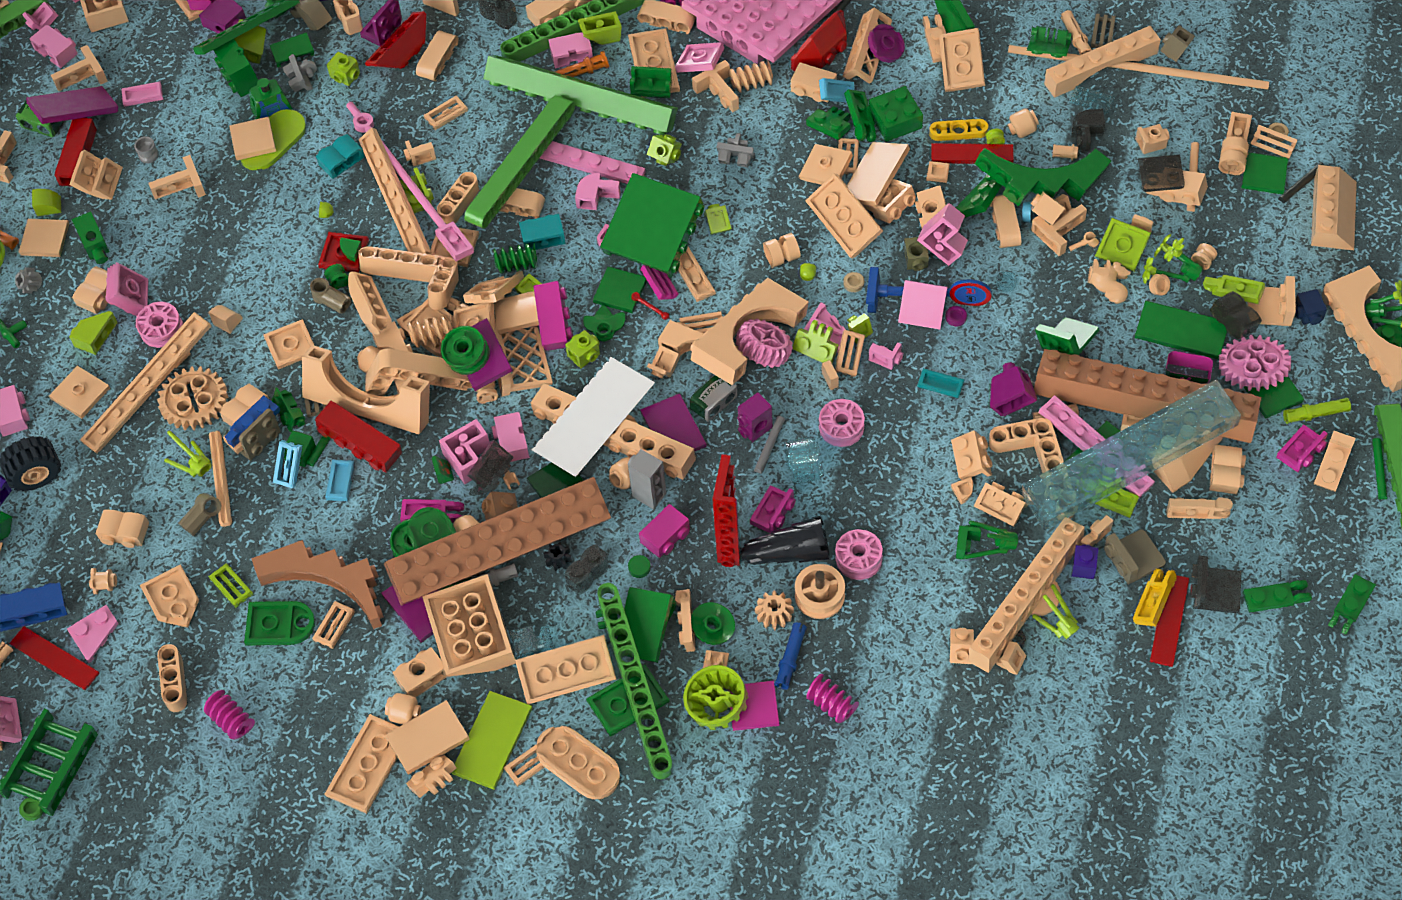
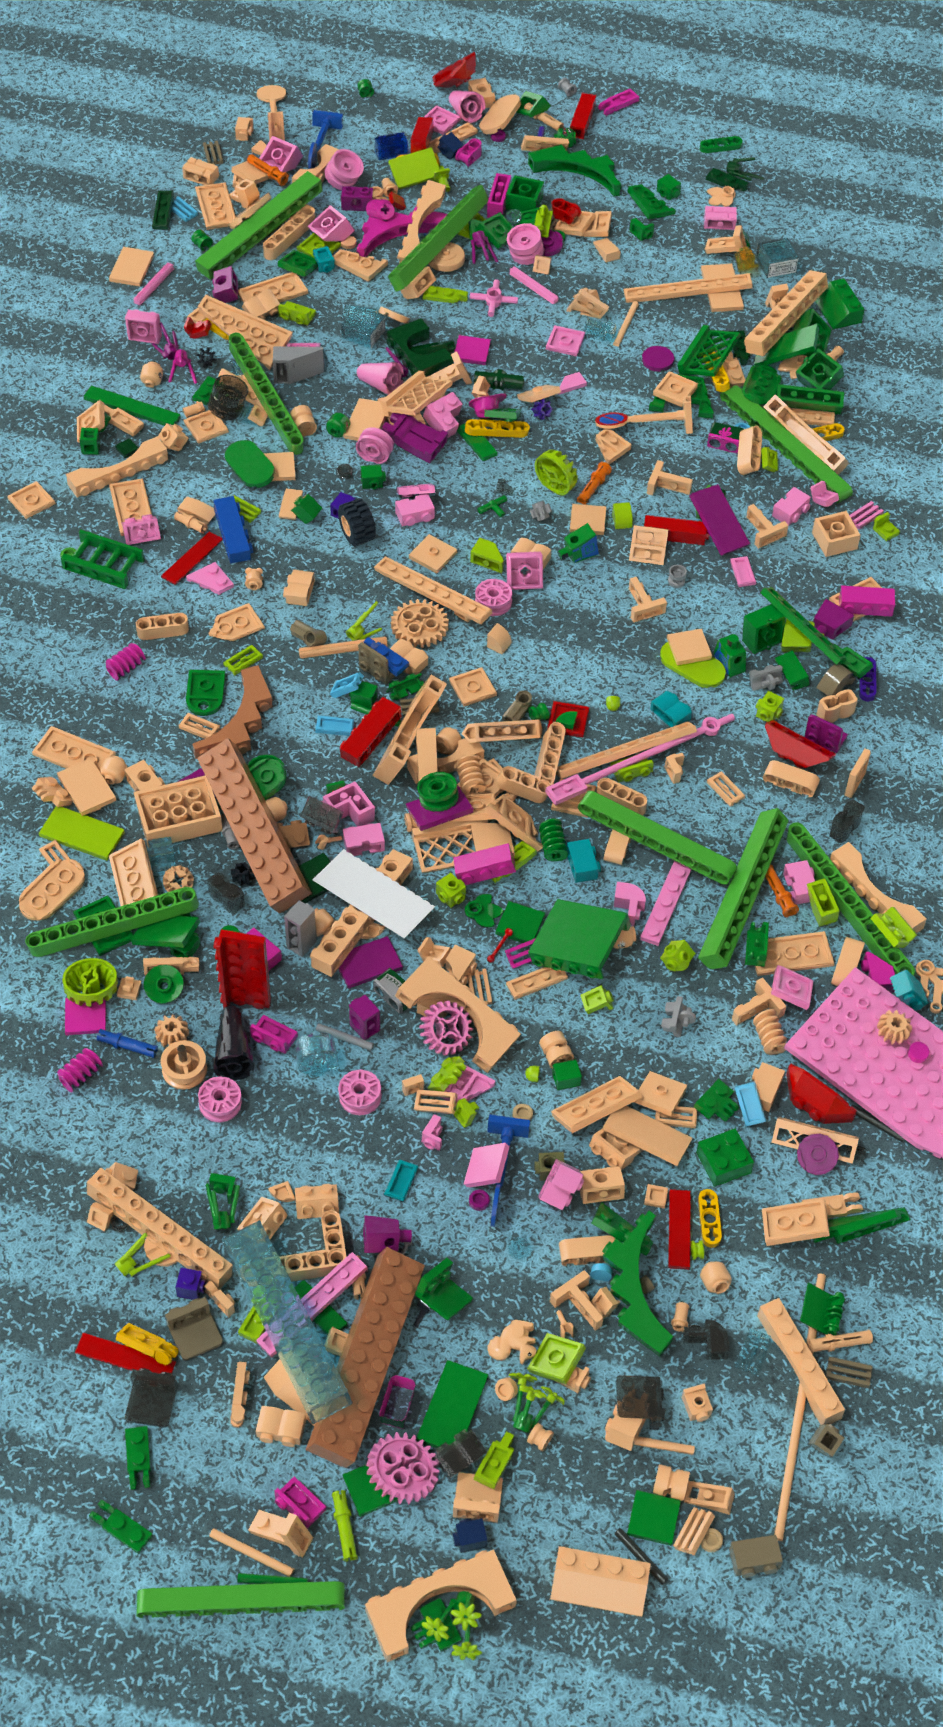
camera: 85 degrees right, 5 degrees down
(410, 506) = (297, 785): dark pink hinge -> none
(561, 631) = (180, 871): none -> light nougat gear
(810, 242) = (566, 1074): none -> green panel
(861, 115) = (723, 1123): green hinge -> none
(1046, 207) = (593, 1279): light nougat brick -> none
(1292, 95) = (755, 1556): none -> dark tan brick
(1355, 489) = (252, 1553): none -> light nougat bar

